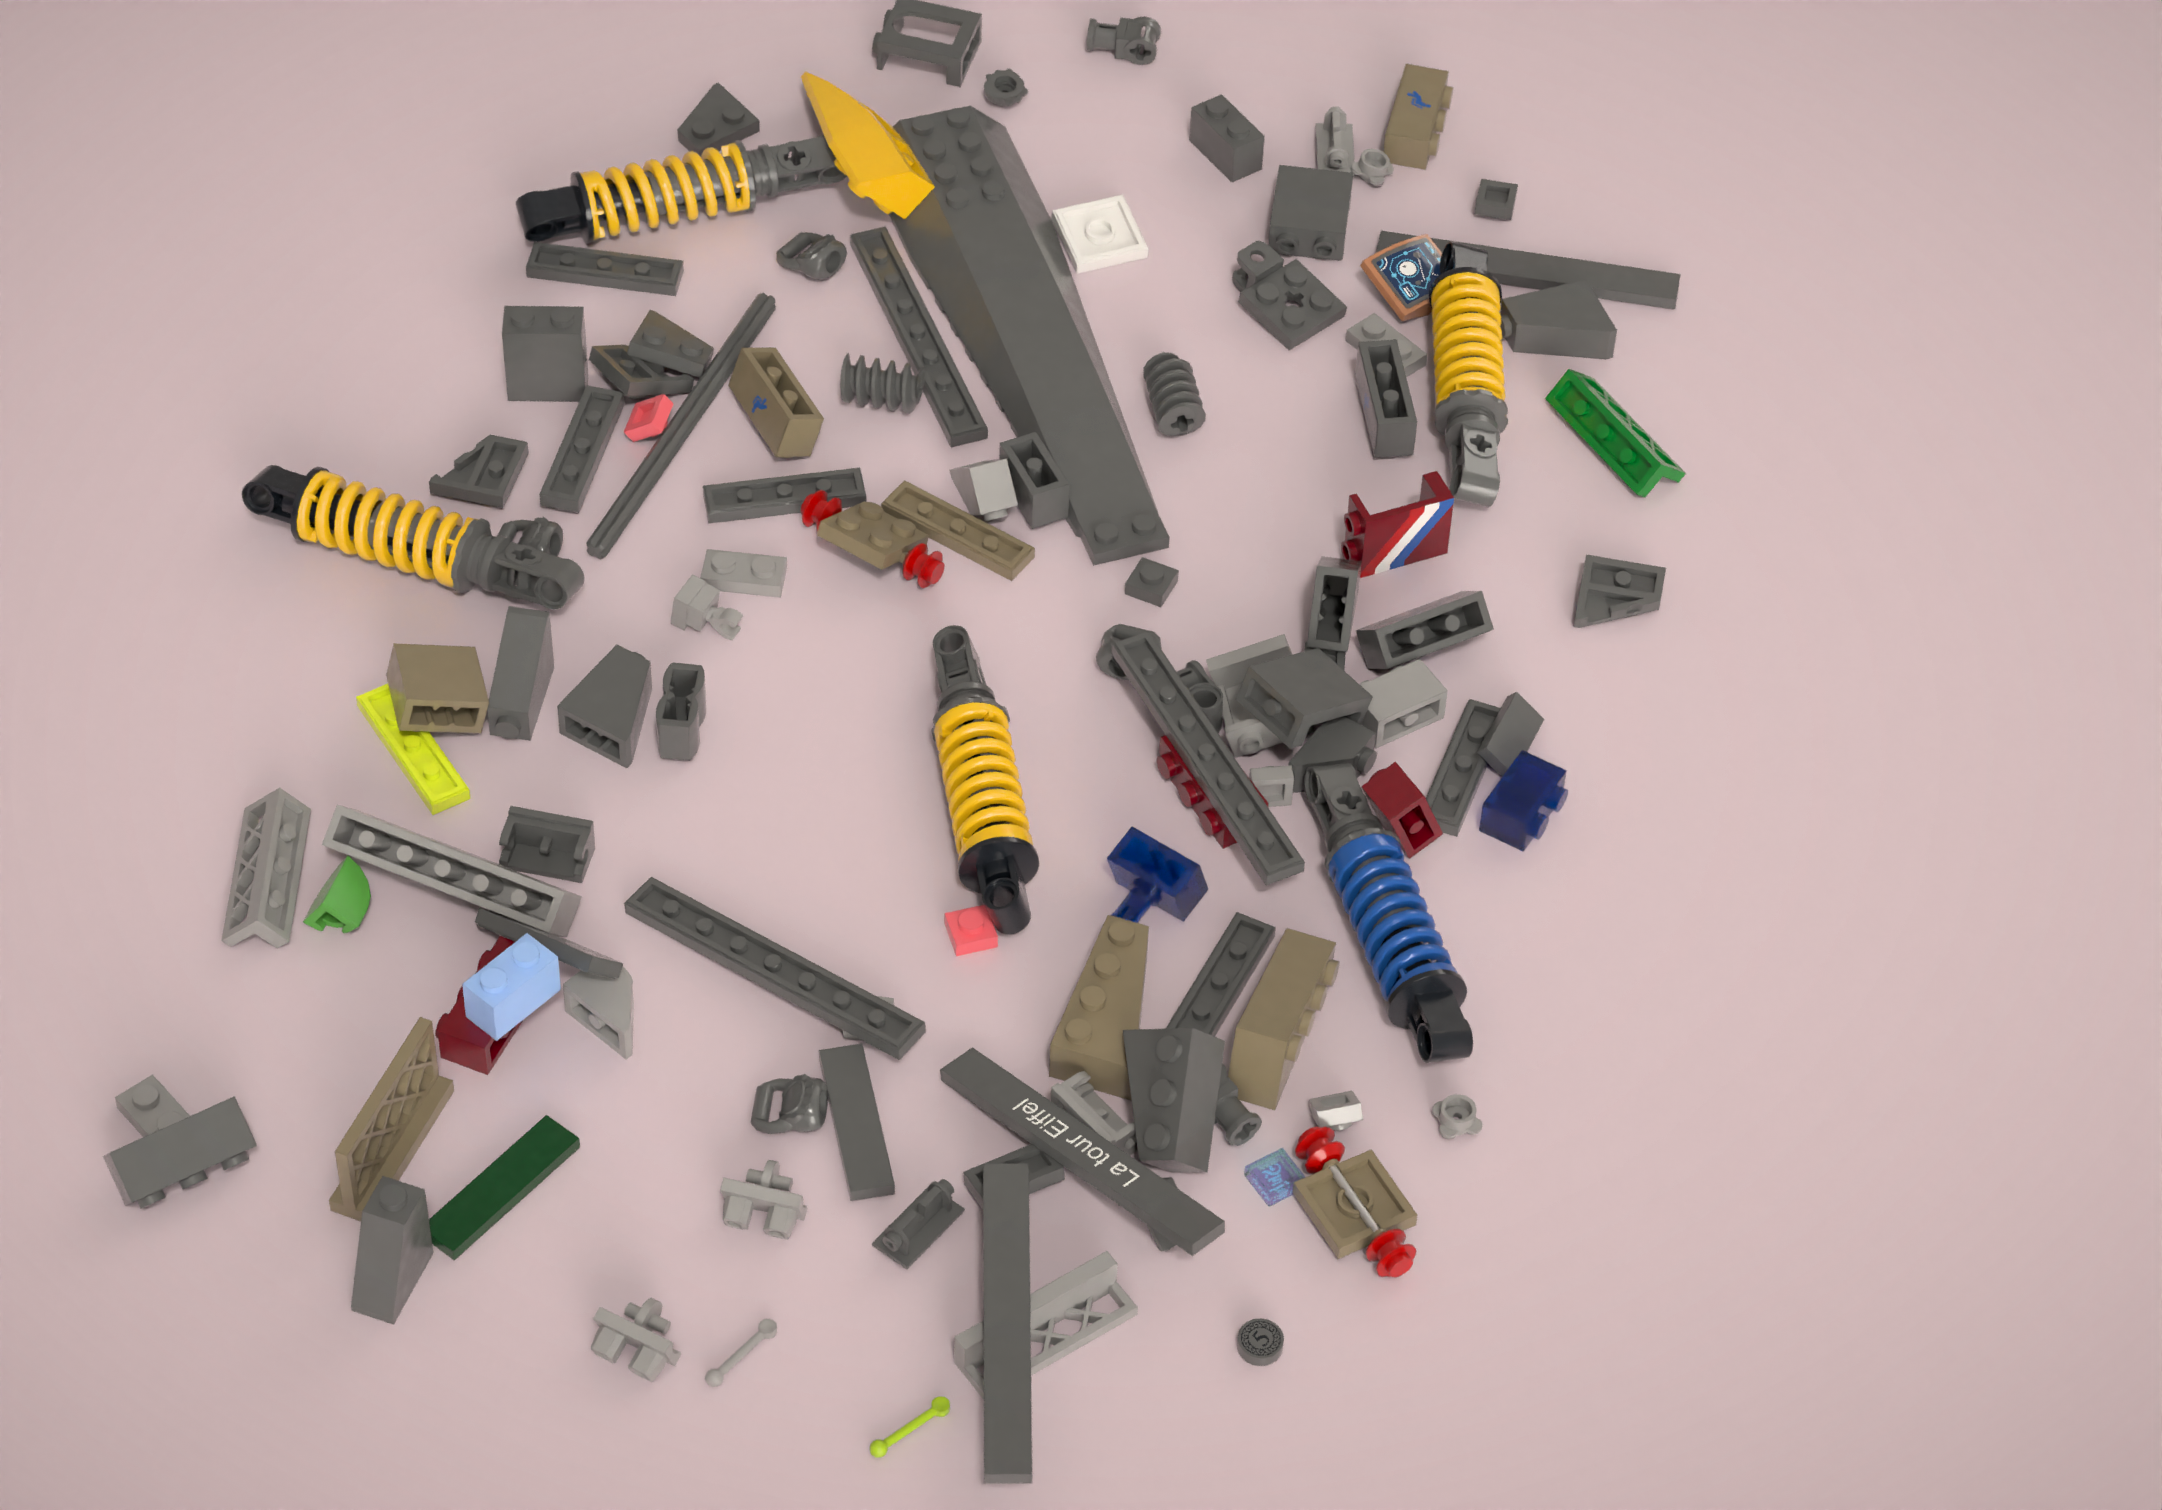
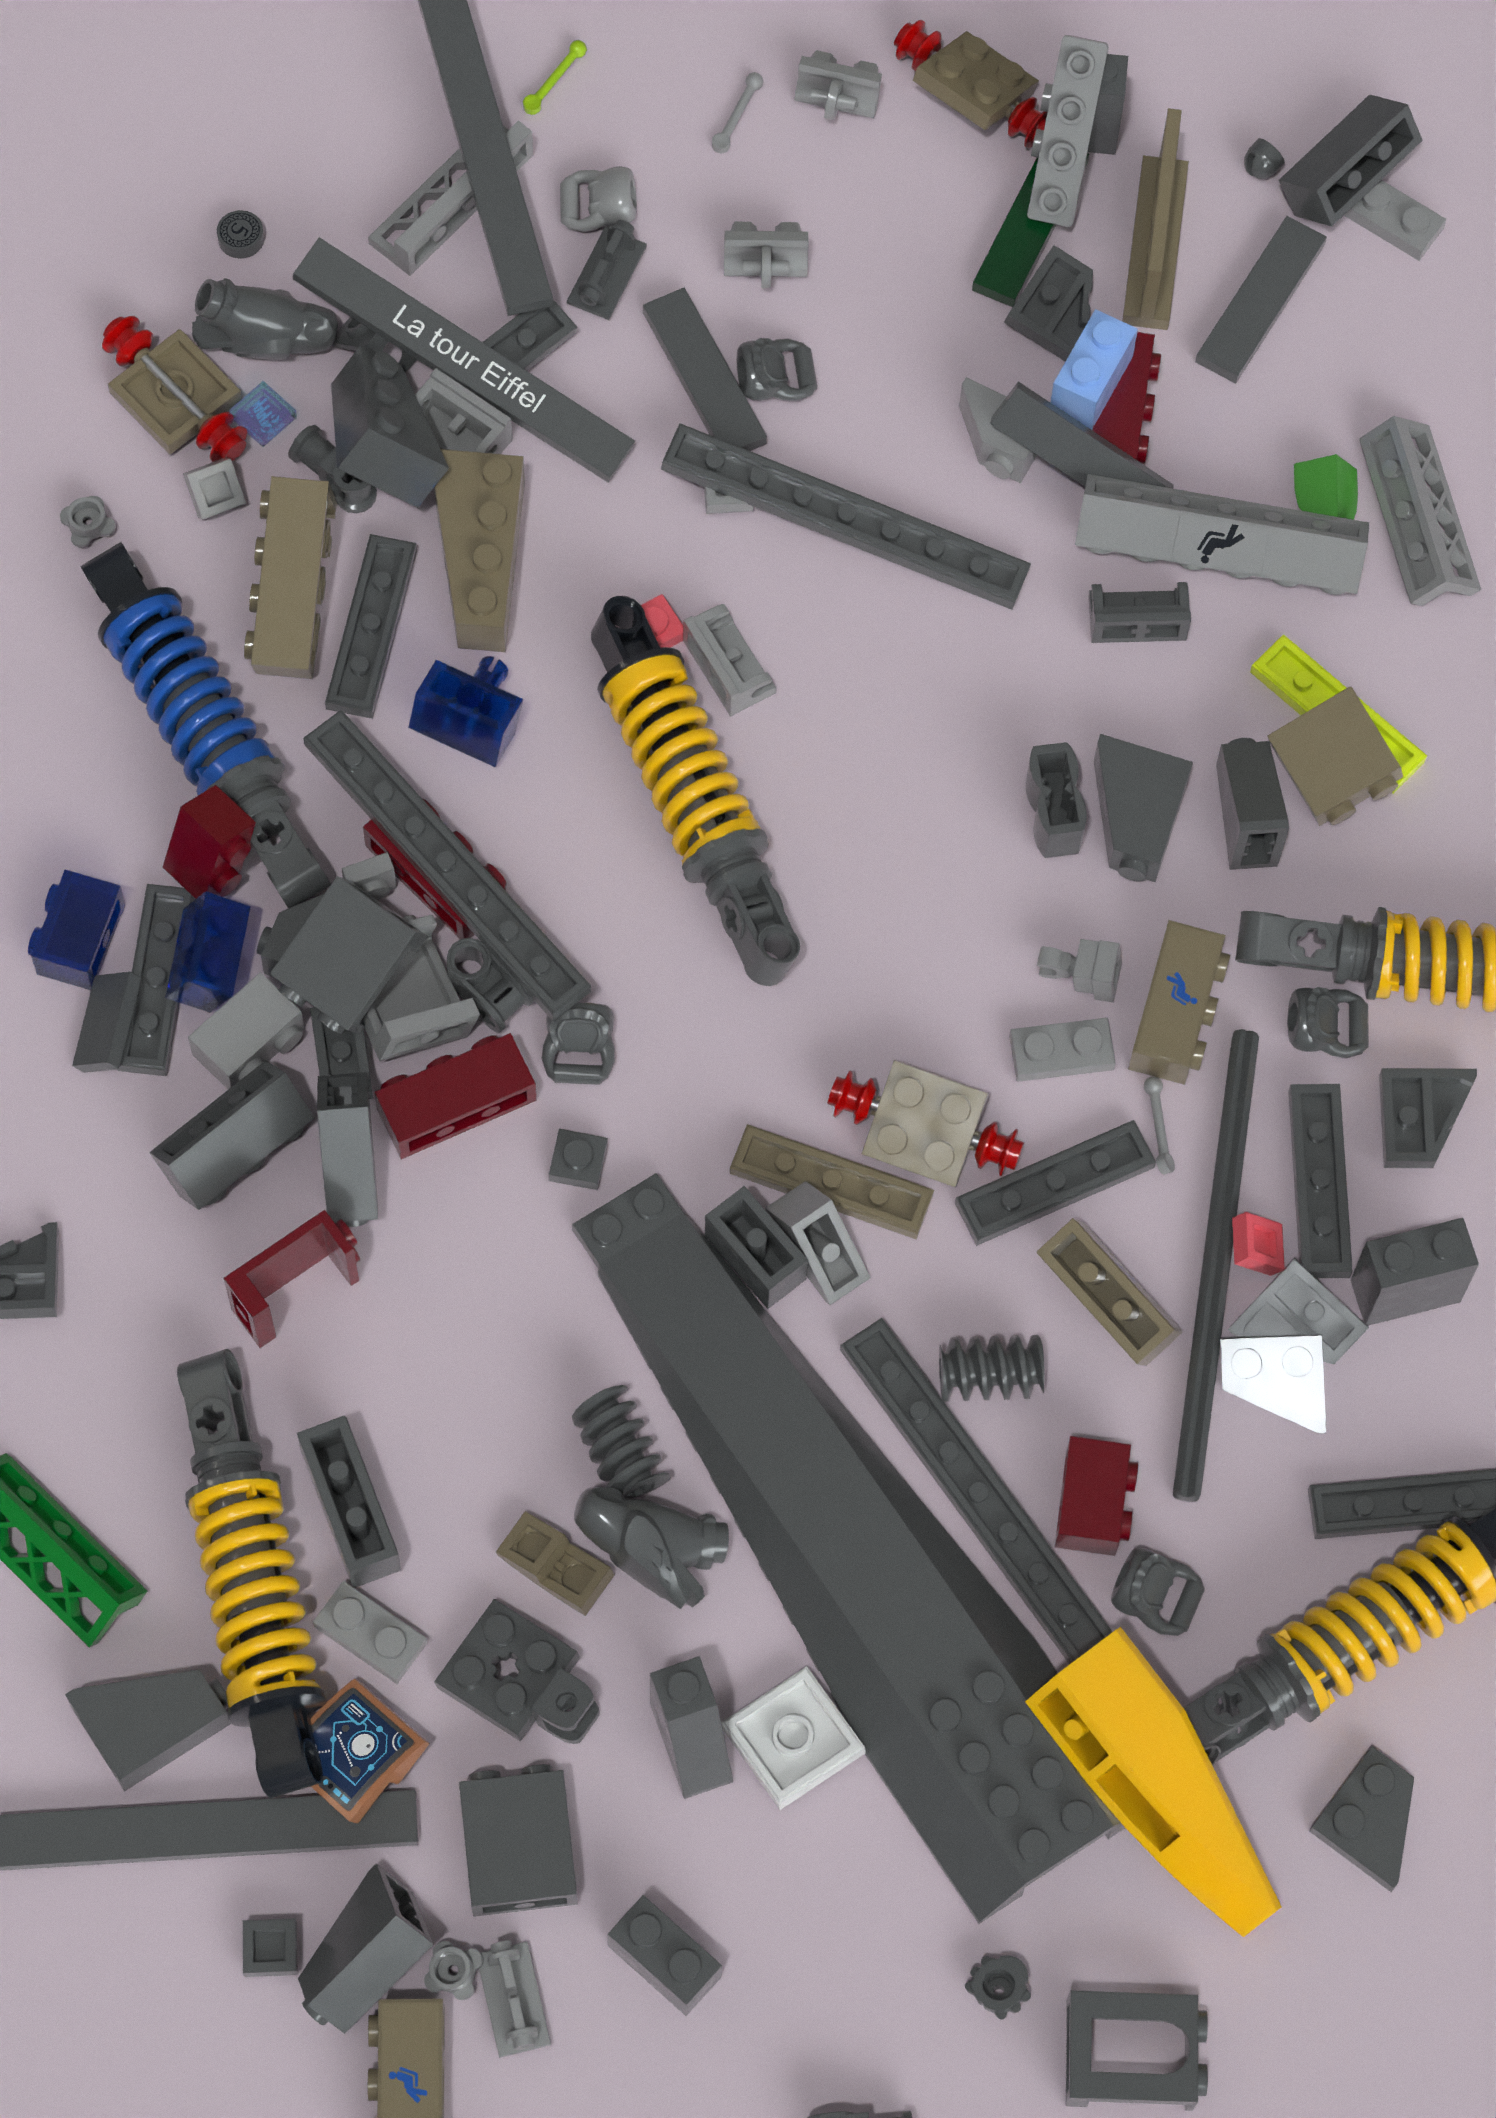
camera: 165 degrees right, 20 degrees up
(256, 1189) = (1263, 159): none -> dark grey hinge
(319, 1074) = (1261, 299): none -> dark grey tile
(447, 1193) = (1067, 130): none -> light grey bracket
(502, 1311) = (973, 79): none -> dark tan plate
(511, 1102) = (1054, 303): none -> dark grey wing
(640, 572) = (1179, 1003): none -> dark tan brick
(682, 536) = (1164, 1161): none -> light grey hinge
(835, 306) = (1094, 1496): none -> dark red brick
(894, 1287) = (610, 198): none -> light grey piece
(915, 883) = (726, 660): none -> light grey hinge
(1166, 330) = (653, 1541): none -> dark grey animal
(1174, 233) = (690, 1726): none -> dark grey slope
(1233, 623) = (455, 1094): none -> dark red brick
(1238, 356) = (555, 1563): none -> dark tan slope
(1270, 1234) = (260, 322): none -> dark grey animal
(1421, 746) = (208, 952): none -> clear blue brick
(1428, 172) = (364, 1951): none -> dark grey slope

